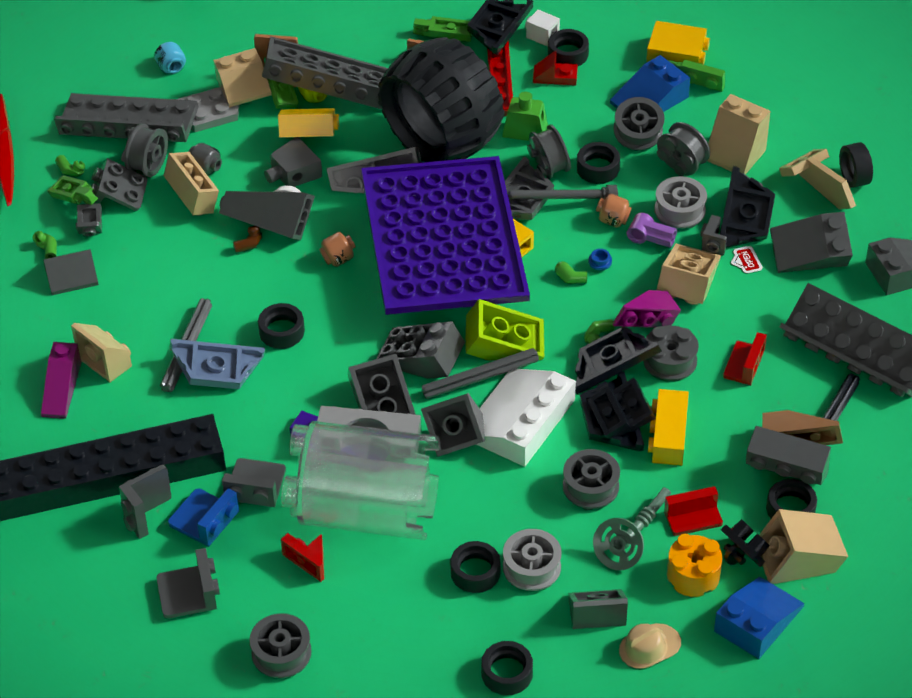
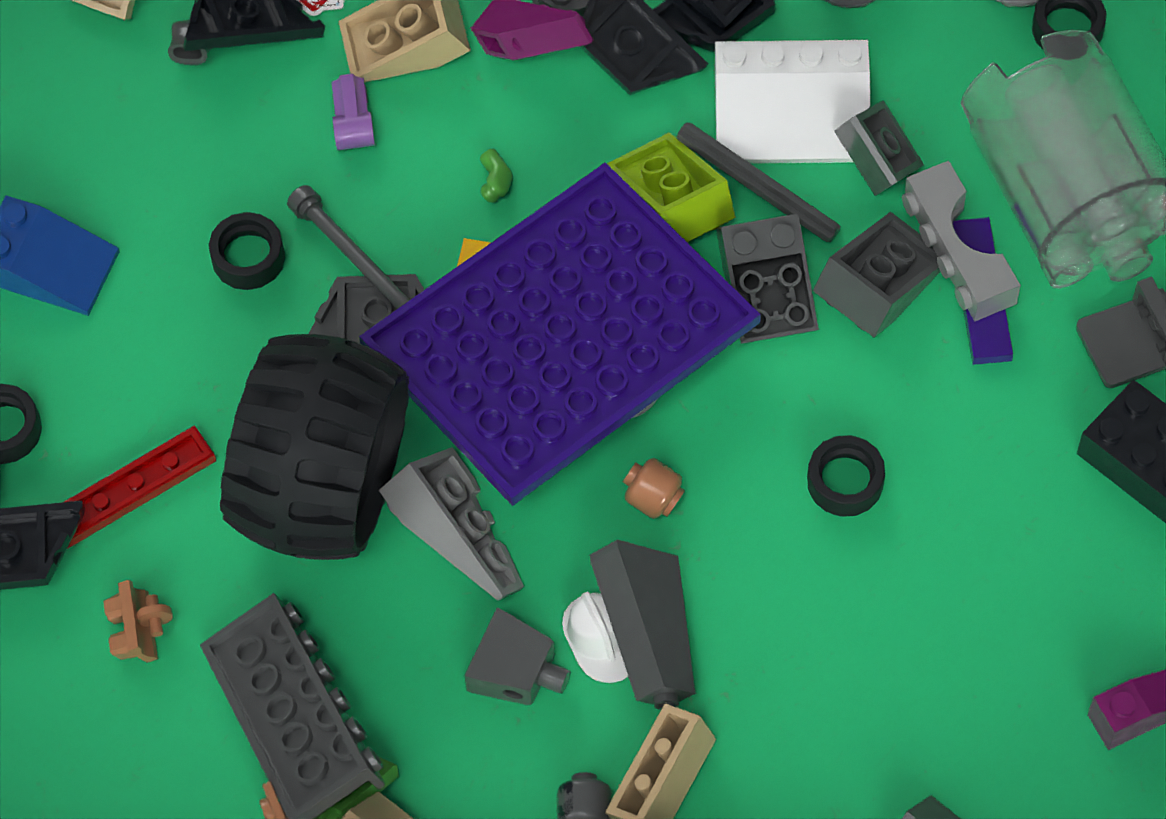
camera: 120 degrees left, 15 degrees up
(101, 351) = (1066, 671): tan slope -> none
(191, 333) = (962, 584): dark grey axle -> none
(216, 362) = (975, 512): sand blue wing -> none
(250, 242) = (709, 628): reddish brown arm -> none
(307, 122) = (424, 680): yellow brick -> none
(442, 27) = (52, 631): bright green hinge -> none
(524, 117) = (218, 378): bright green torso -> none
(549, 151) = (283, 300): dark grey wheel -> none
(550, 72) = (68, 418): red slope -> none
(597, 328) = (591, 93): bright green arm -> none
(600, 259) = (445, 153): blue plate -> none
(613, 210) = (341, 177): nougat head -> none
(638, 123) = (141, 225): dark grey wheel -> none
(680, 202) = (275, 99): light grey wheel -> none
(683, 148) = (172, 135): dark grey wheel -> none
(712, 240) = (315, 40): dark grey bracket -> none
(738, 134) = (101, 80): tan slope -> none

